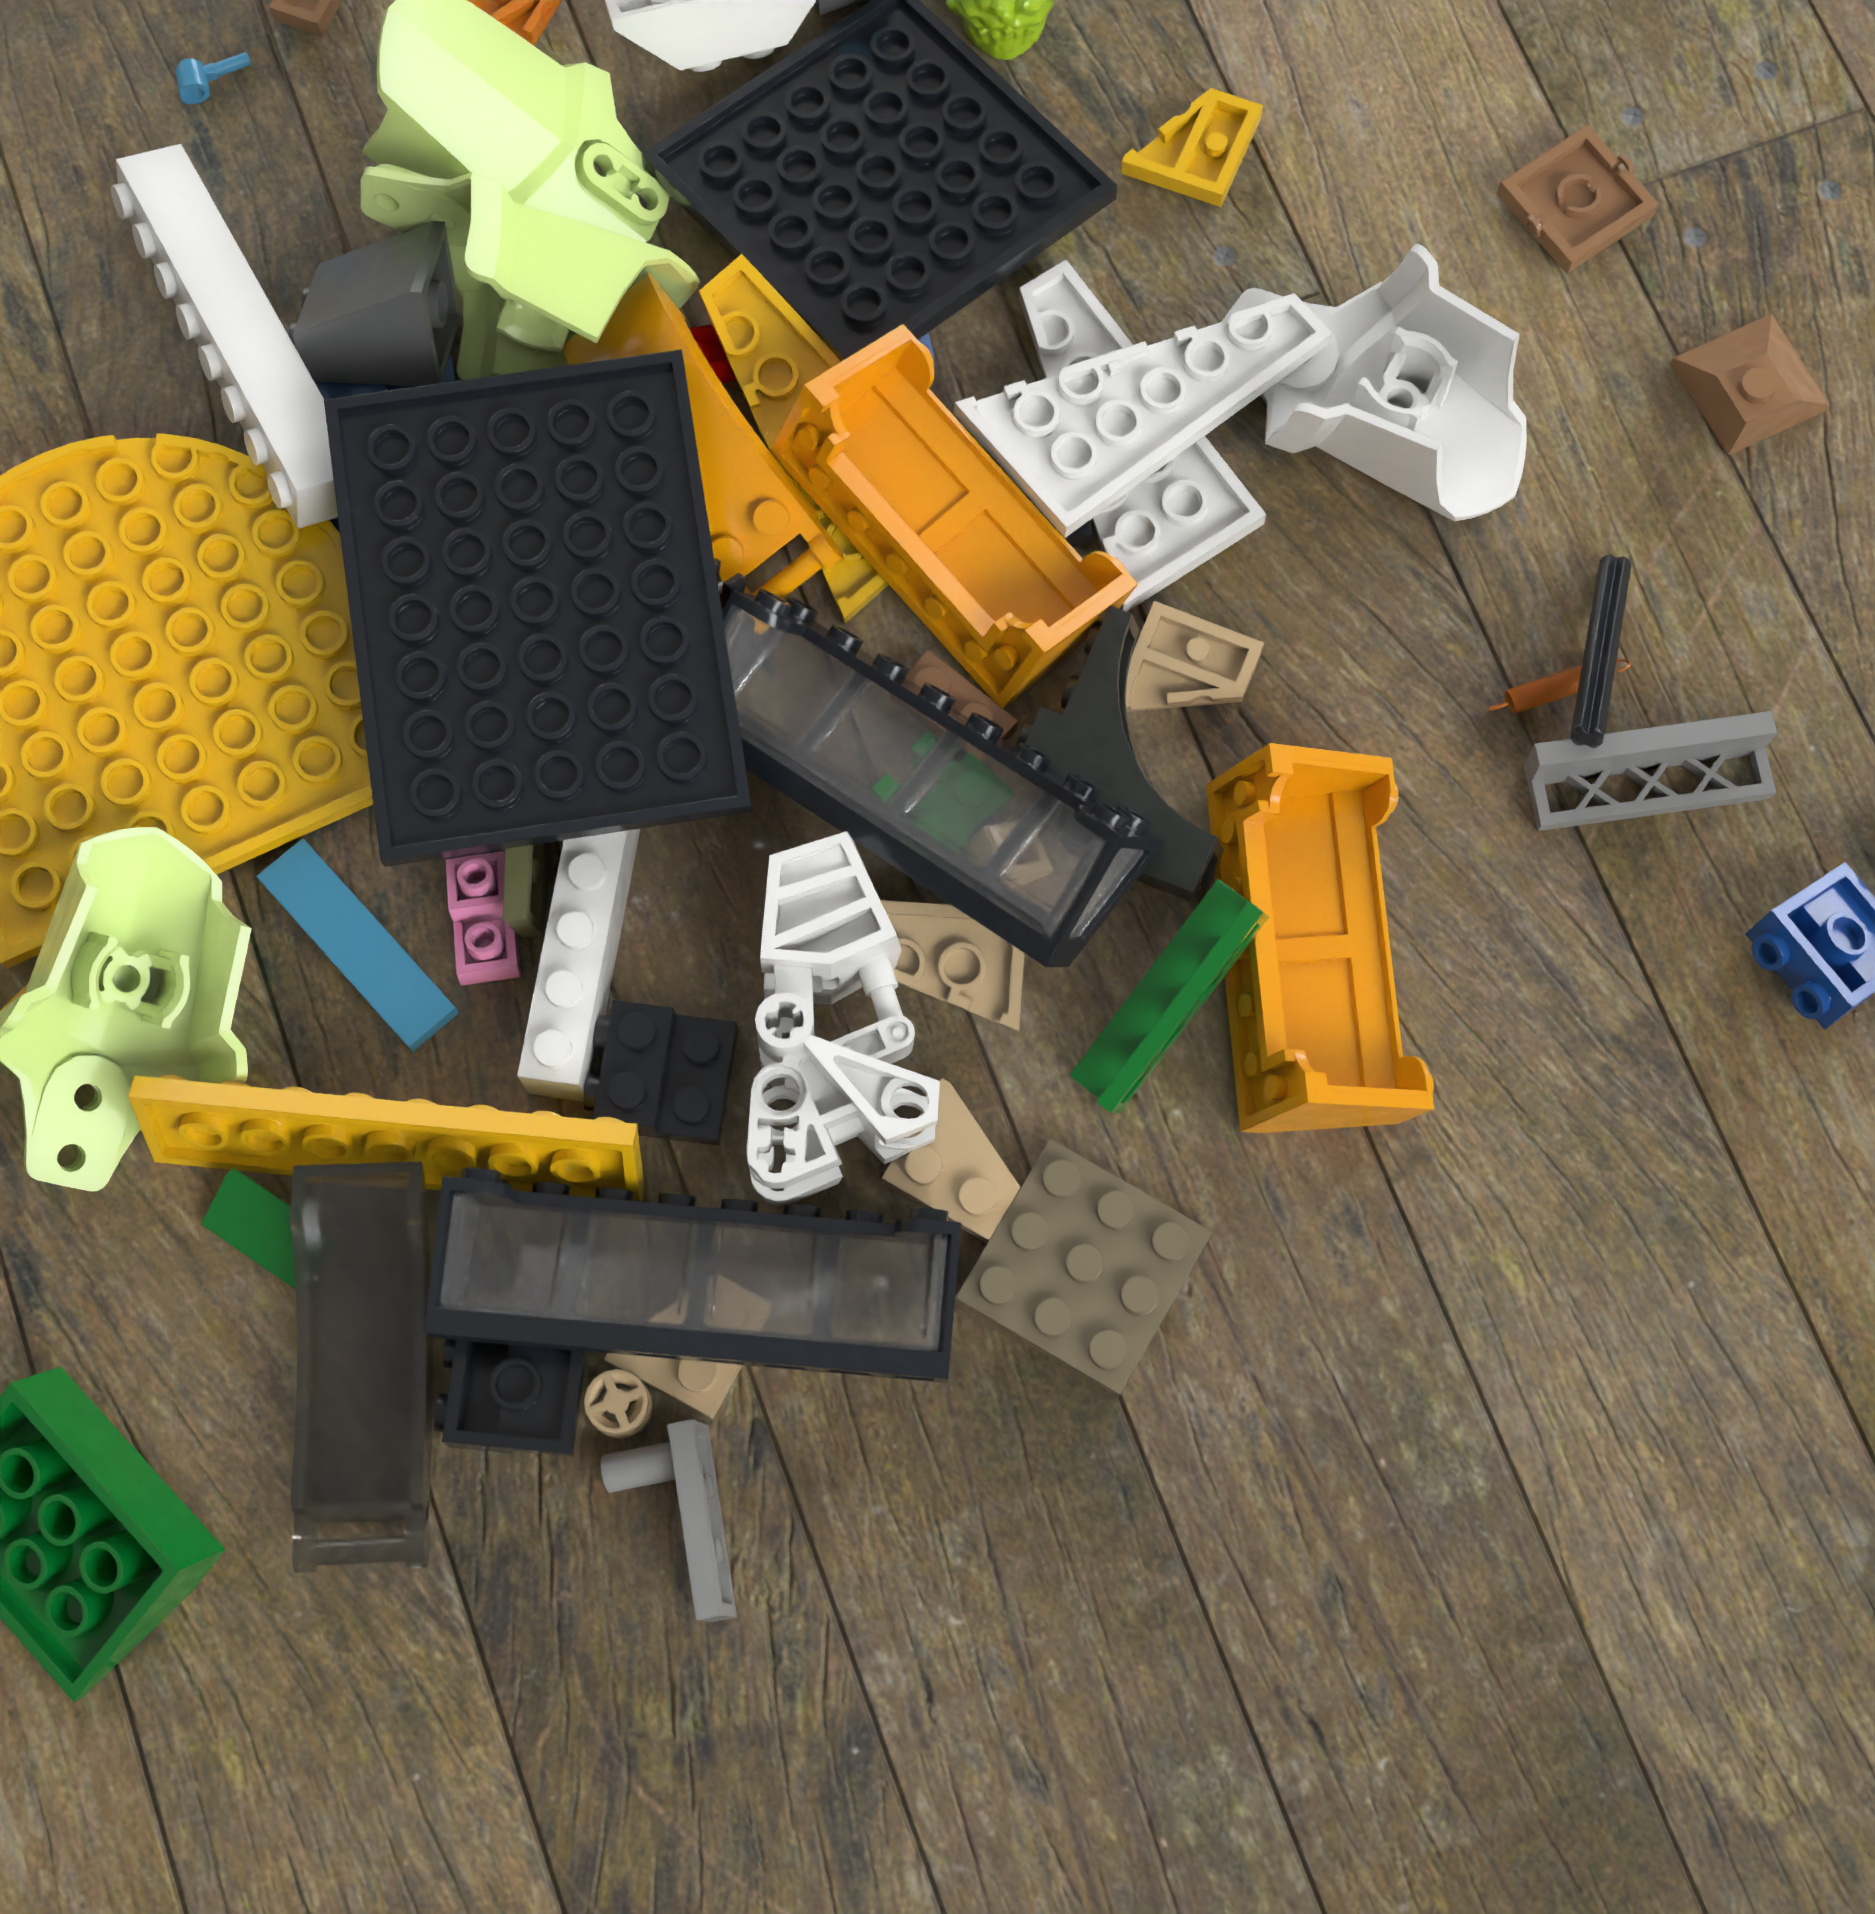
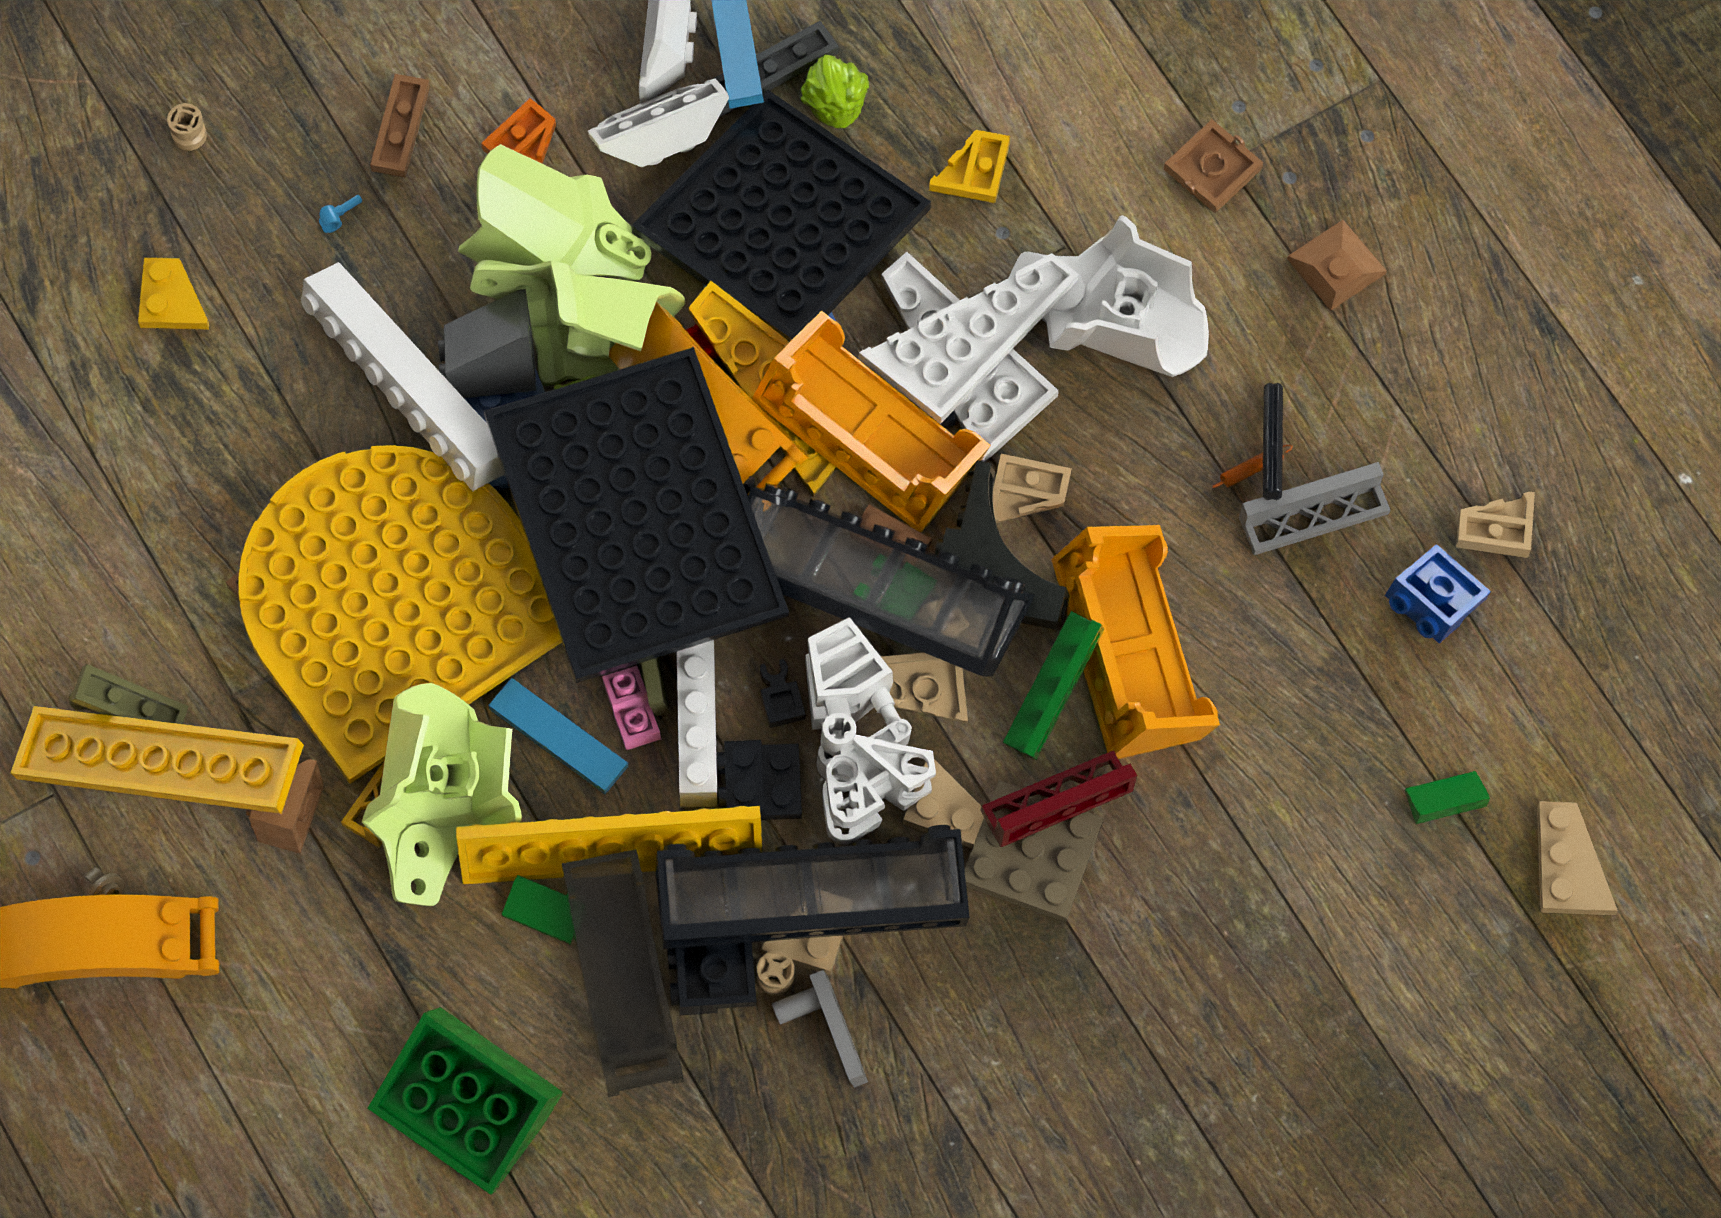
camera: 15 degrees left, 5 degrees down
(725, 945) = (781, 699): none -> black plate
(1145, 1202) = (1059, 806): none -> dark red fence
(1797, 1293) = (1447, 797): none -> green slope

